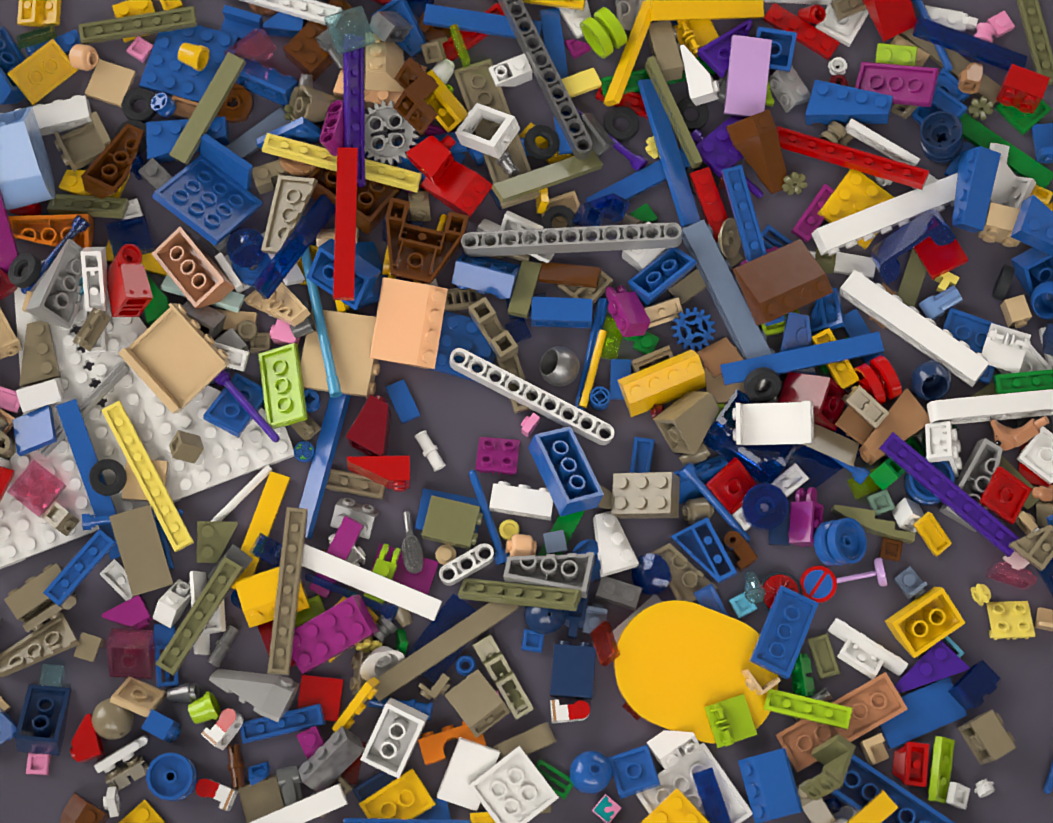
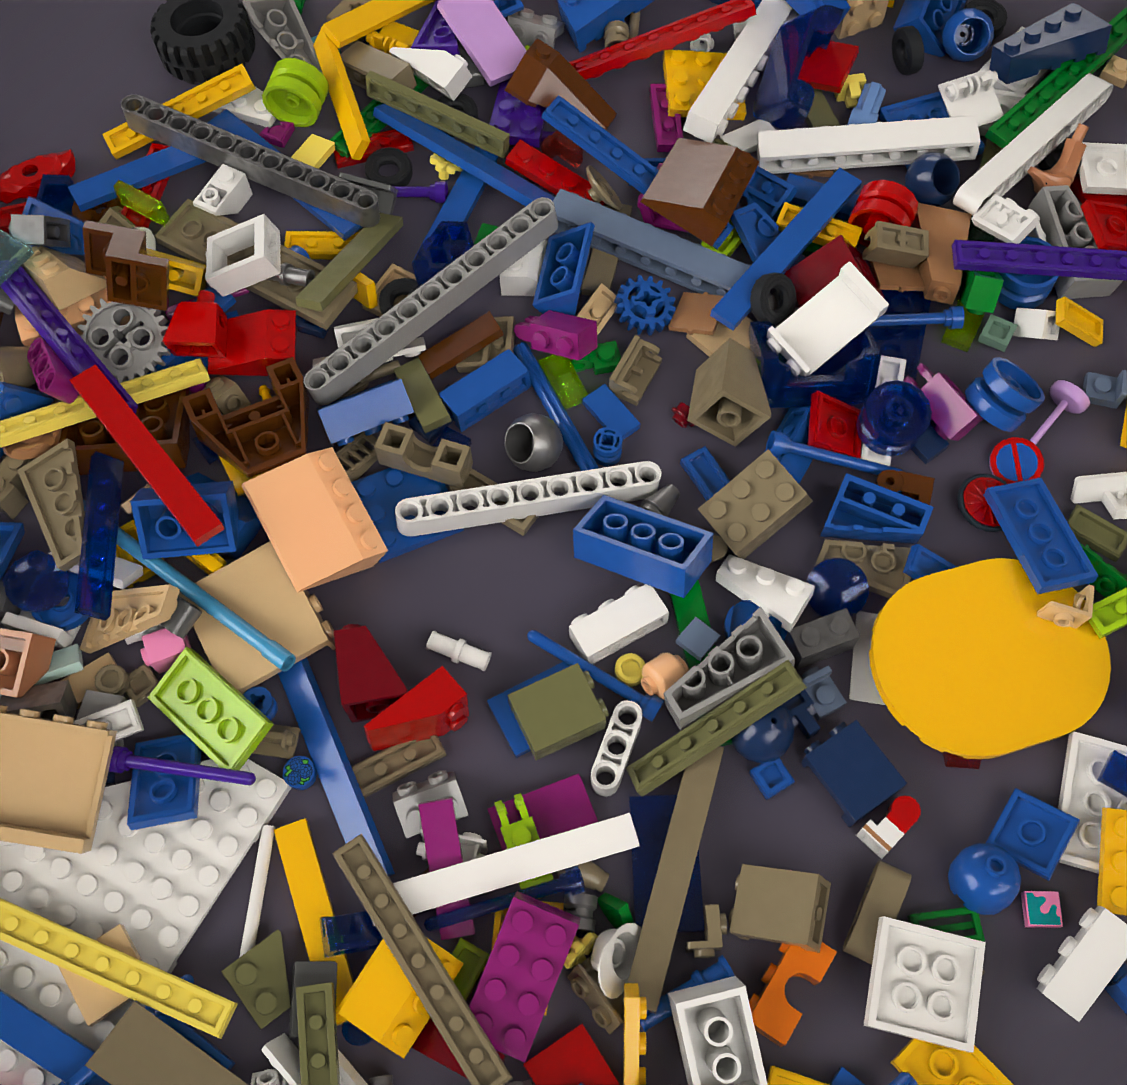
camera: 40 degrees left, 10 degrees down
(98, 468) = (30, 996): black tyre -> none
(186, 446) = (133, 884): dark tan panel -> none
(402, 401) = (380, 620): blue tile -> none
(411, 547) = (531, 782): flat silver piece -> none
(445, 554) = (580, 757): tan plate -> none
(465, 658) = (719, 863): blue plate -> none
(466, 765) = (838, 1003): white tile -> none
(476, 156) = (249, 300): blue tile -> none
(497, 455) = (544, 595): magenta hinge -> none
(503, 676) = (773, 847): olive slope -> none
(529, 424) = (551, 532): bright pink plate -> none
(536, 152) = (315, 225): black tyre -> none
(593, 368) = (572, 420): yellow bar -> none
(600, 453) = (662, 500): none -> flat silver cone
(605, 643) = (865, 705): clear red tile -> none
(662, 382) = (663, 377): yellow slope -> none
(672, 746) = (1046, 765): white slope -> none
(697, 510) = (822, 482): dark tan head -> none
(699, 456) = (759, 437): dark tan cone -> none
(730, 721) = (1081, 680): lime hinge -> none
(742, 606) = (961, 546): medium azure tile -> none
(753, 588) = (960, 516): clear light blue cone -> none
(793, 183) = (620, 104): olive plant -> none
(834, 445) = (906, 307): dark tan sticker -> none
(874, 526) = (1025, 355): olive slope -> none
(880, 143) = (662, 13): white tile -> none
(890, 549) = (1050, 371): reddish brown tile -> none
(1016, 311) = (941, 68): tan brick -> none

